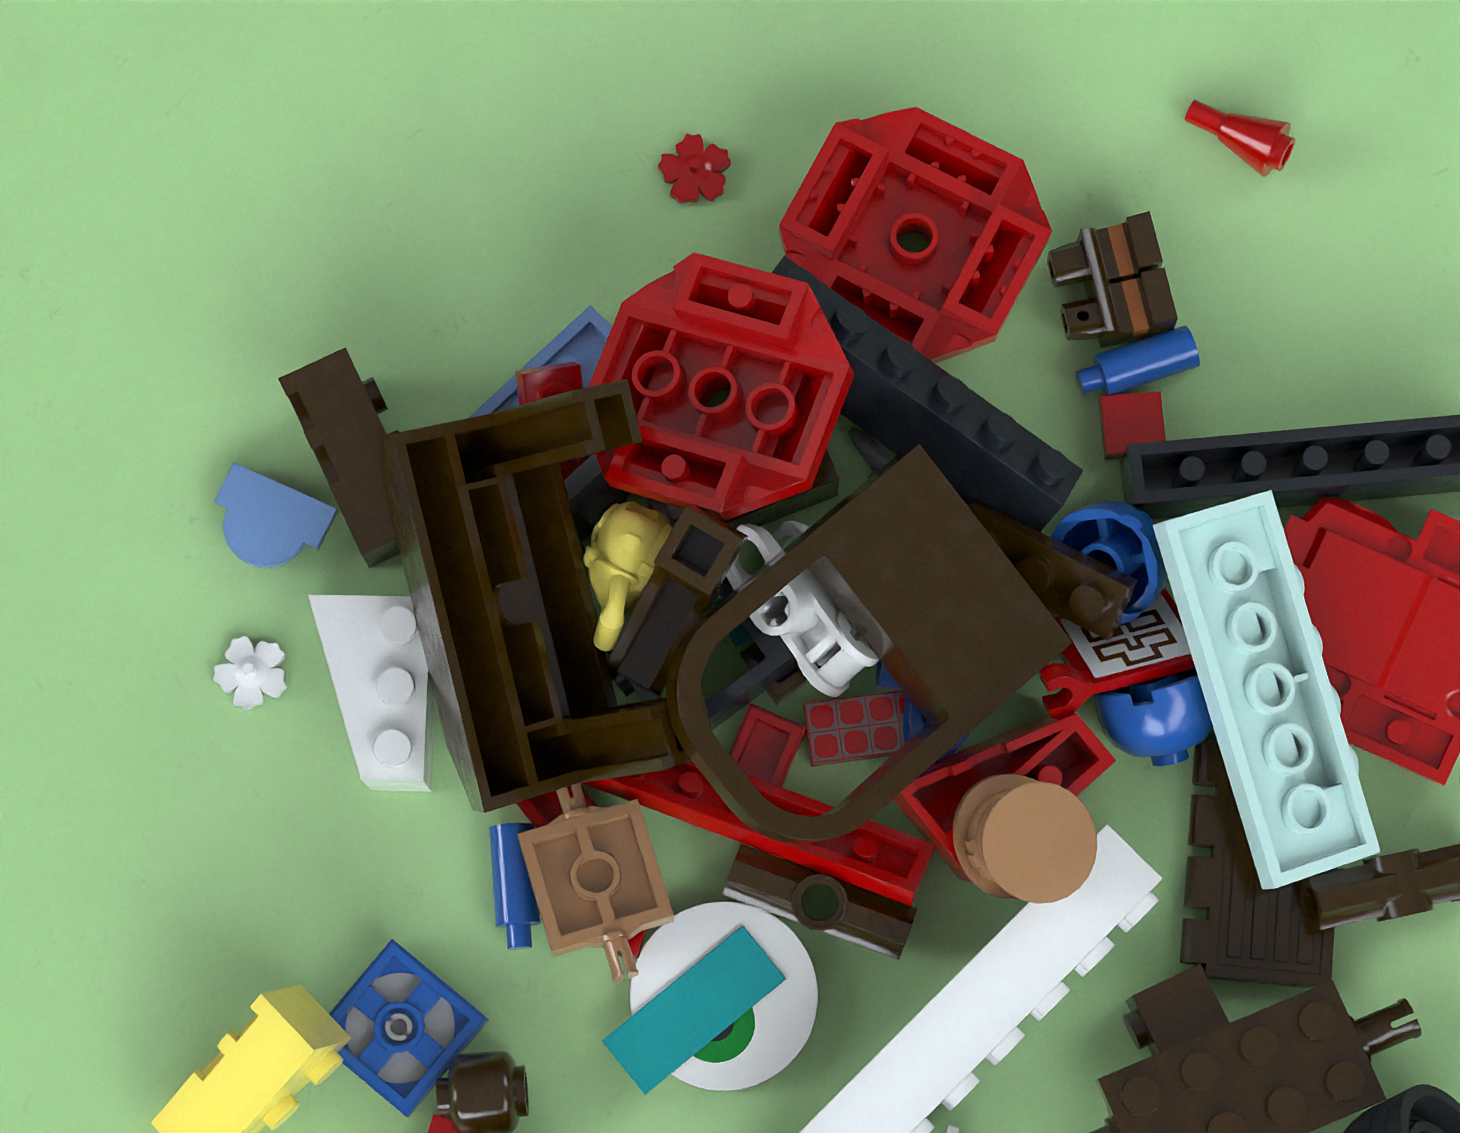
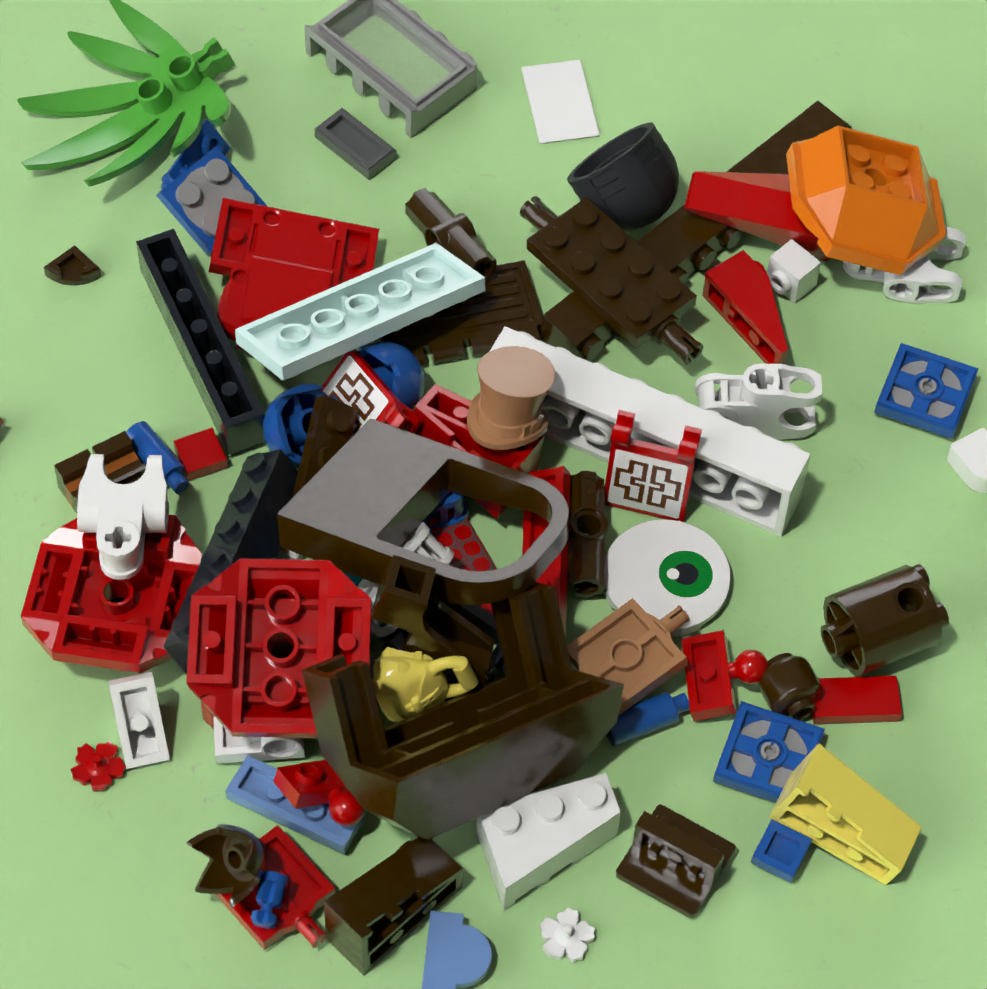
camera: 115 degrees left, 20 degrees down
(248, 977) = (781, 850): none -> blue plate
(296, 846) = (674, 860): none -> dark brown bracket
(409, 308) = (270, 897): none -> blue piece
(443, 325) = (303, 896): none -> red plate
(468, 272) = (234, 862): none -> dark brown piece
(541, 995) = (712, 674): none -> red plate
(693, 1010) = (683, 587): teal sticker -> none
(729, 225) = (138, 720): none -> white slope
(867, 1012) = (649, 475): none -> flag
(1000, 255) = (122, 514): none -> white piece

